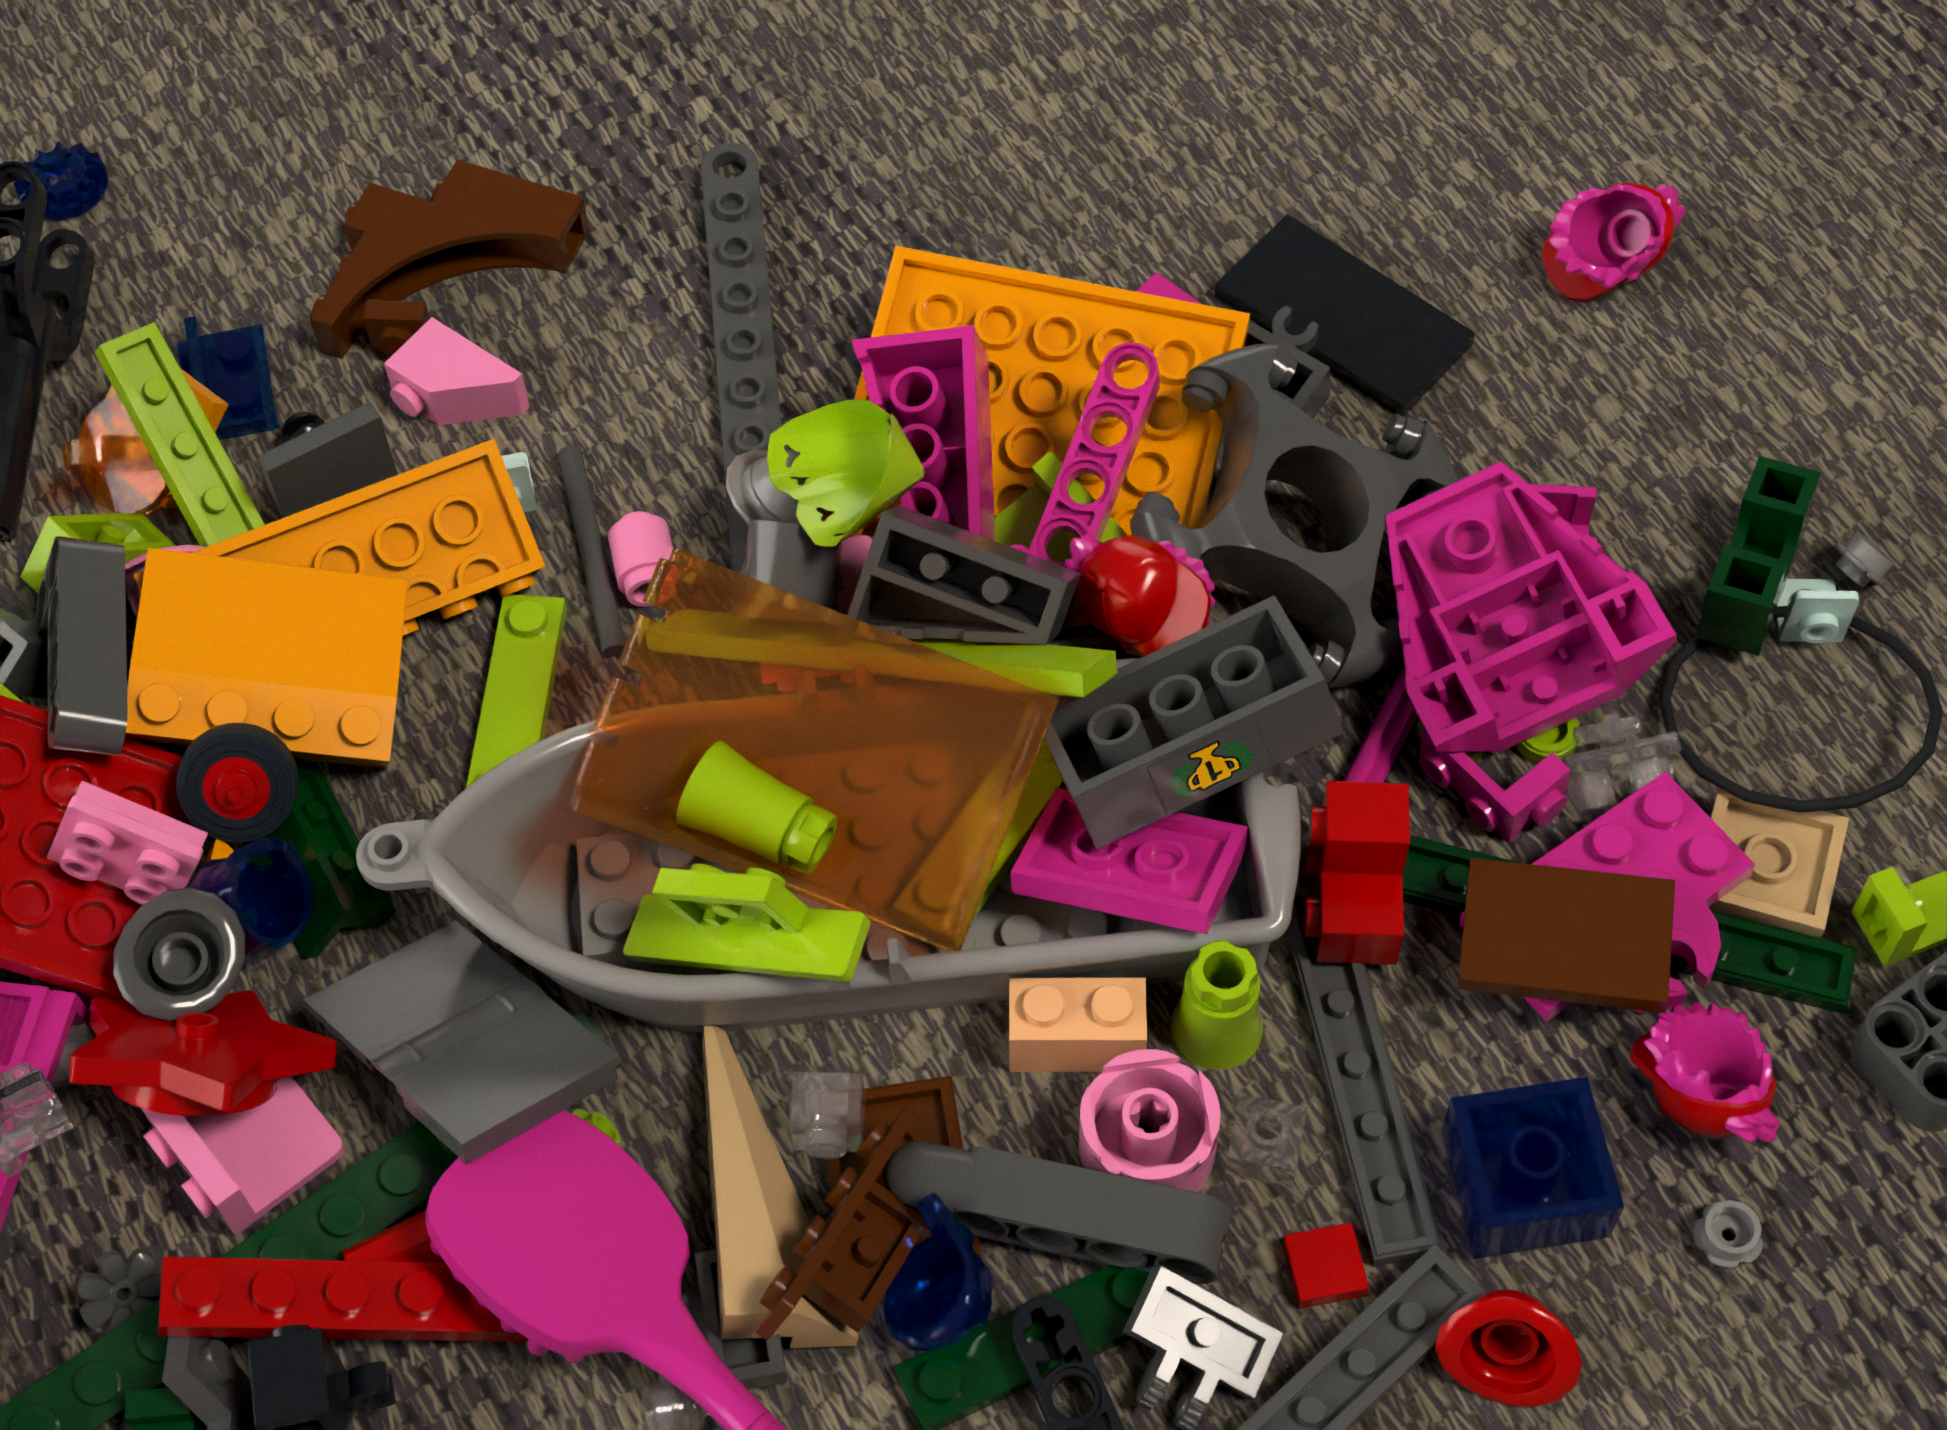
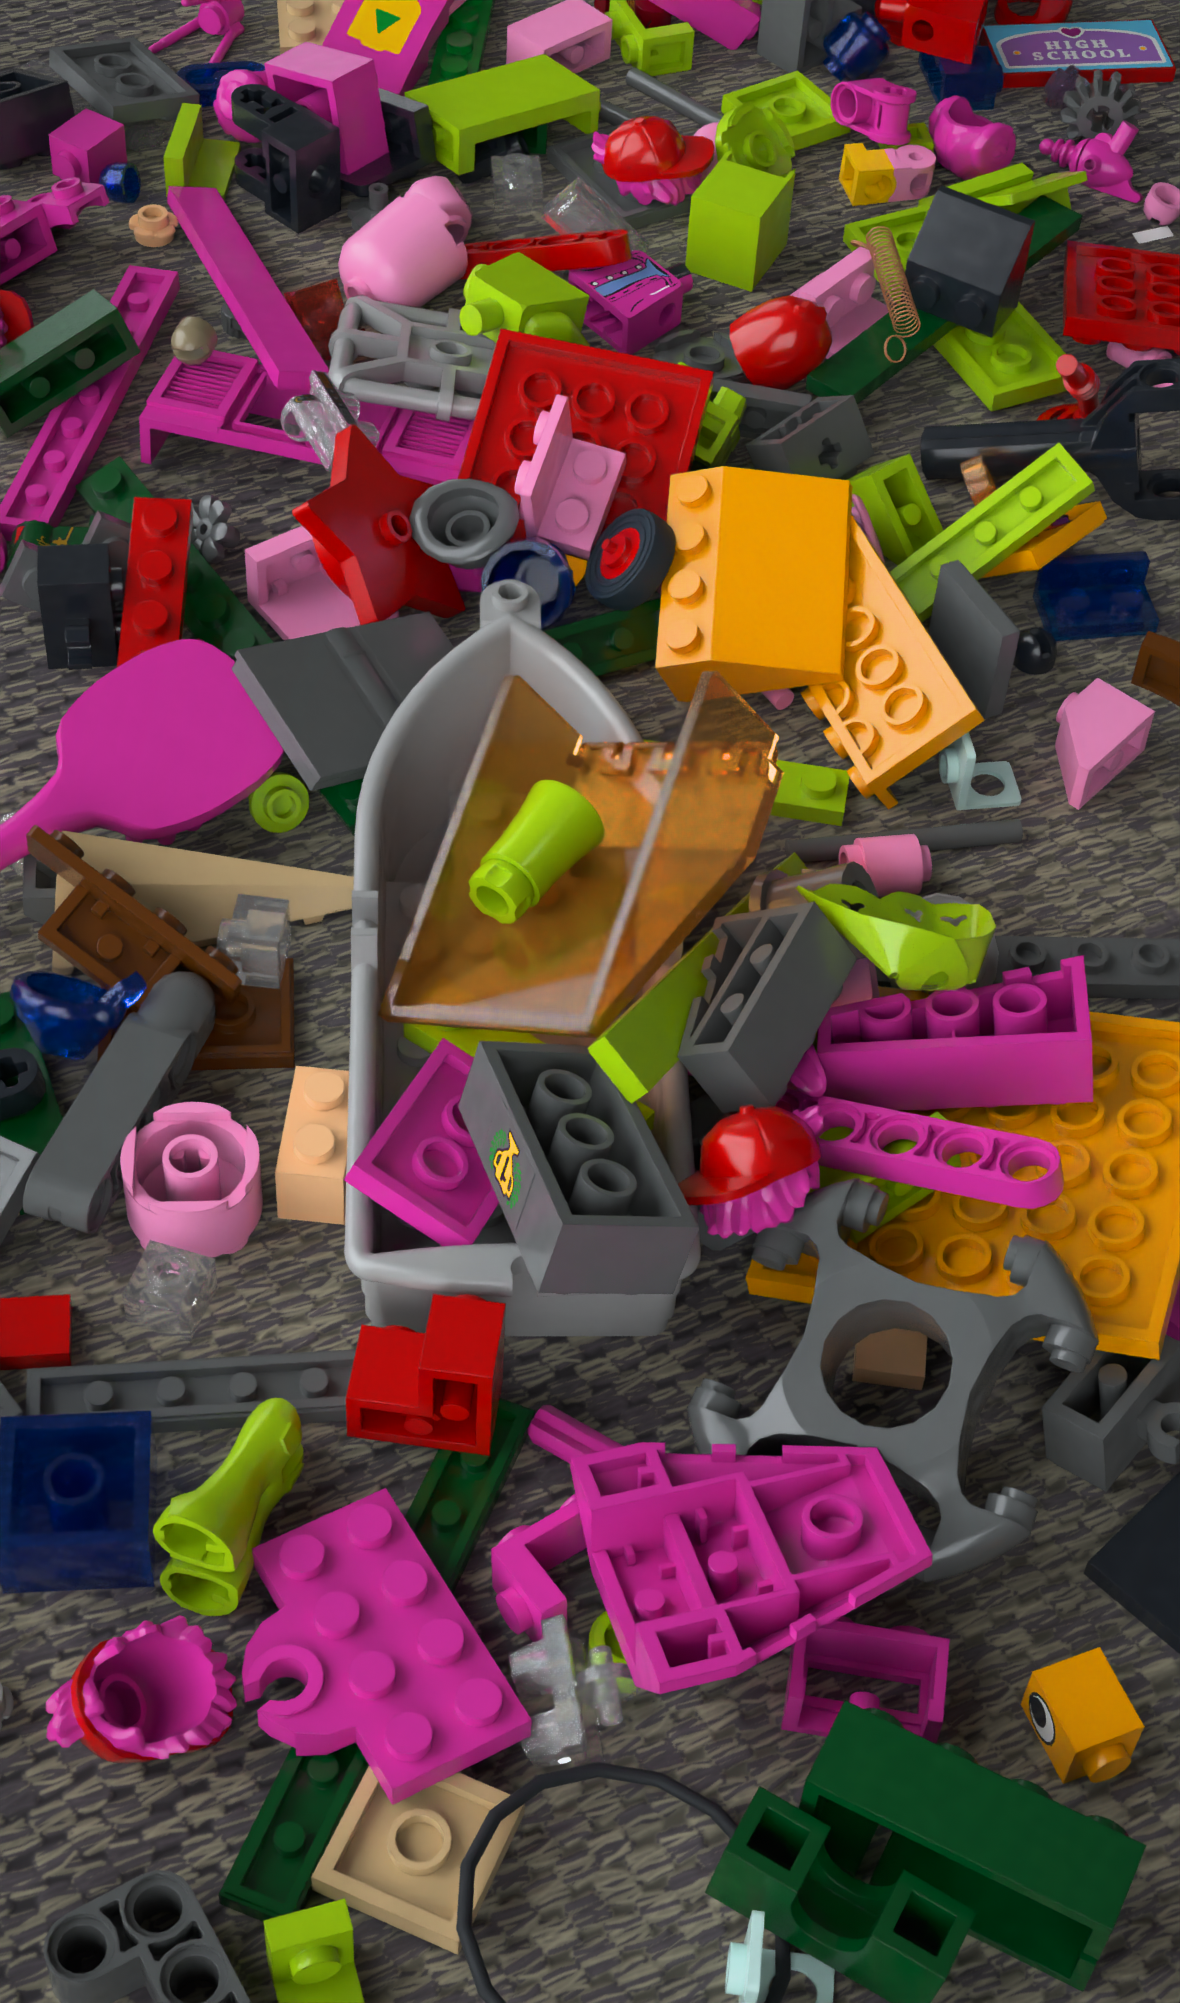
camera: 90 degrees right, 10 degrees down
(85, 621) = (783, 445): dark grey beam -> none
(393, 323) = (1159, 697): reddish brown plate -> none
(743, 926) = (408, 842): lime bracket -> none
(1218, 1011) = (308, 1261): lime plant -> none
(1530, 1035) = (224, 1518): none -> lime piece
(1549, 409) = (1082, 1717): none -> light orange brick
(1567, 935) = (323, 1562): reddish brown tile -> none
(1693, 468) = (1029, 1866): none -> dark green piece

